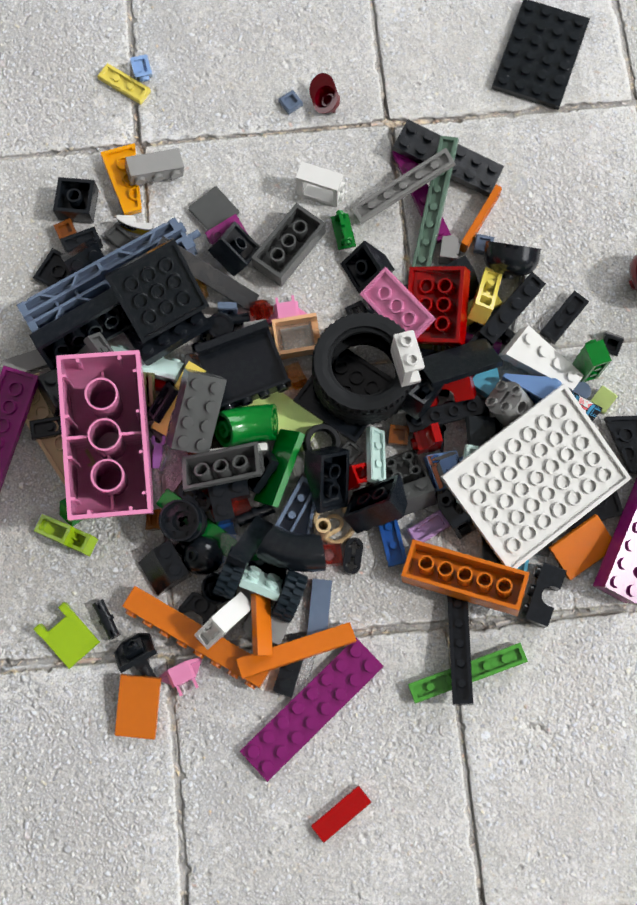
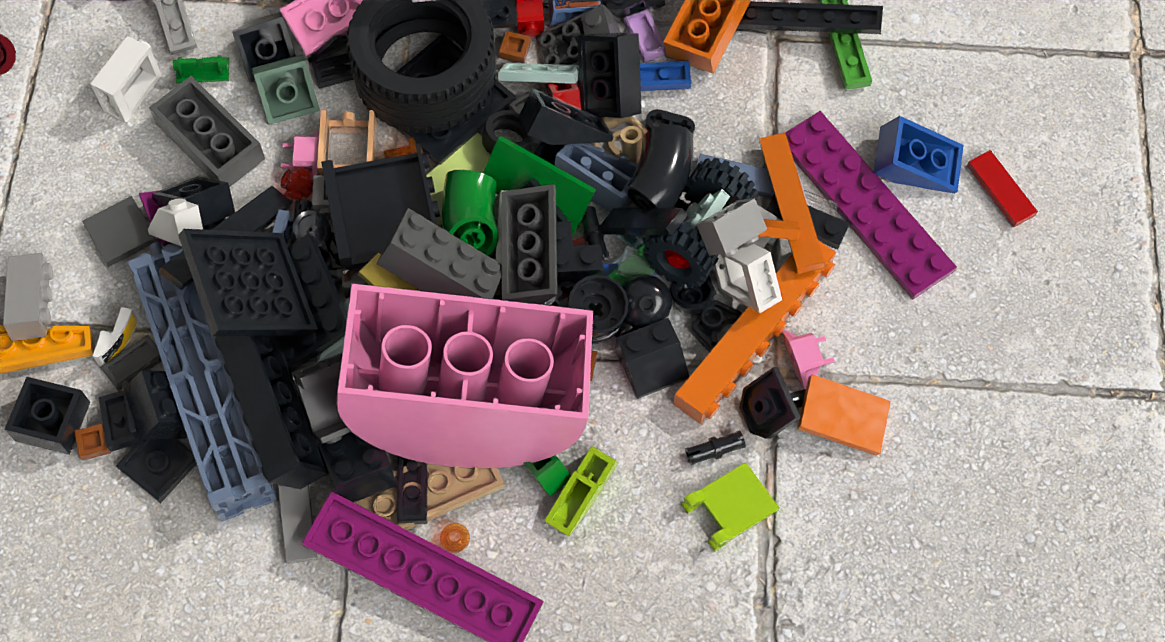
camera: 85 degrees left, 10 degrees down
(30, 463) = (455, 546): none -> clear orange plate
(203, 241) = (173, 219): none -> white slope
(242, 603) = (732, 227): none -> light grey brick
(335, 287) = (286, 89): none -> sand green slope
(354, 746) = (917, 156): none -> blue slope

